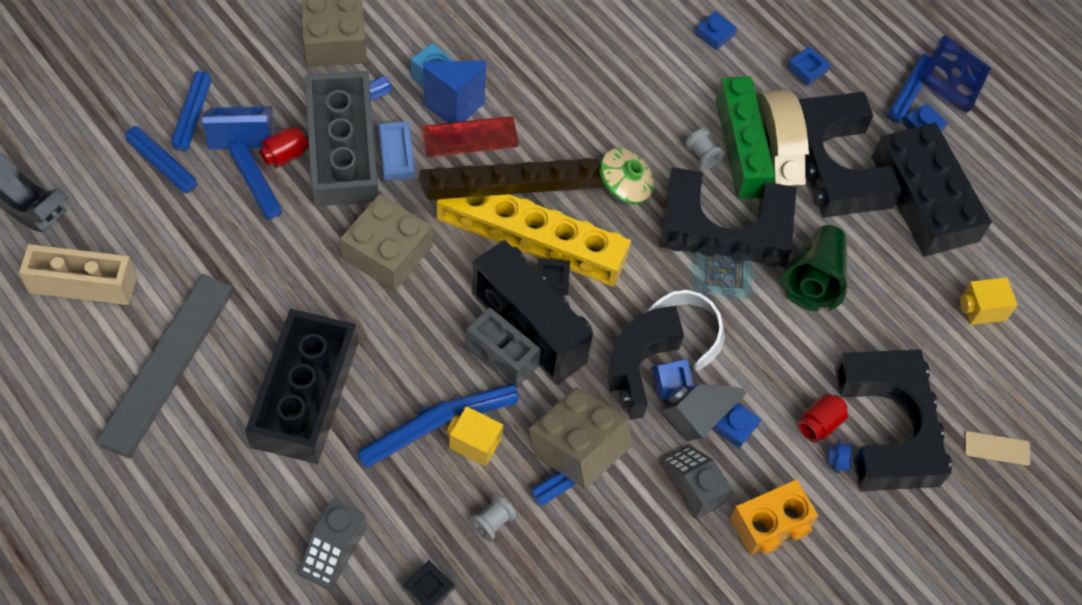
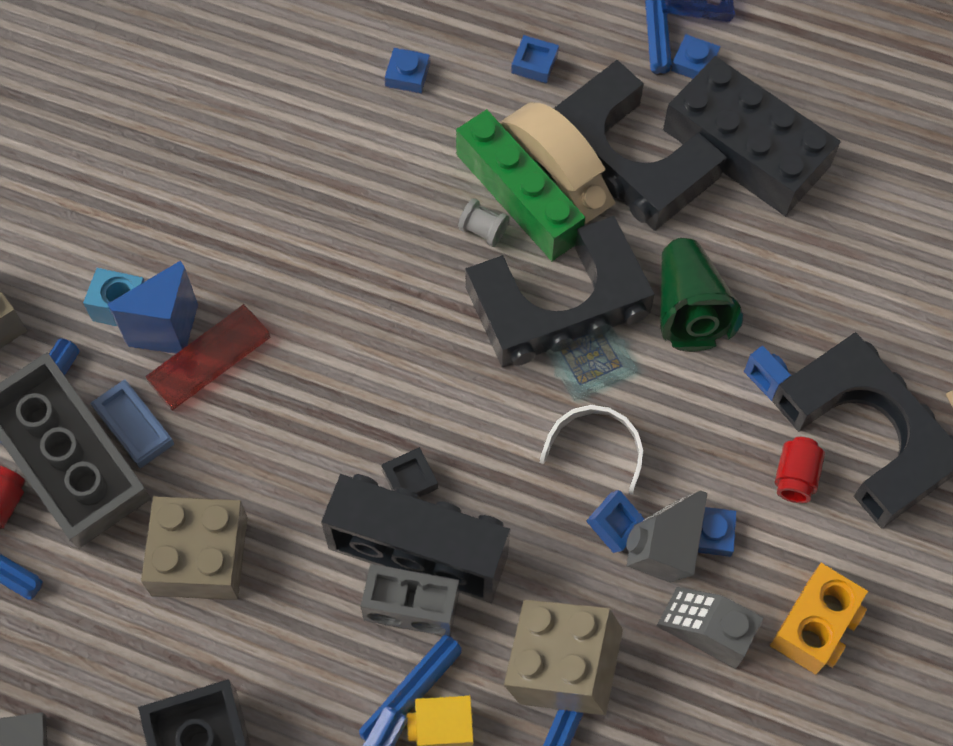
camera: 25 degrees left, 5 degrees up
(510, 178) = (293, 388): dark brown plate -> none
(540, 242) = (335, 448): yellow brick -> none
(626, 176) = (417, 305): tan dish -> none
(644, 336) = (558, 483): black arch -> none
(840, 456) = (842, 503): blue plate -> none
(841, 341) = (766, 371): none -> blue plate
(988, 301) = (884, 232): yellow brick -> none

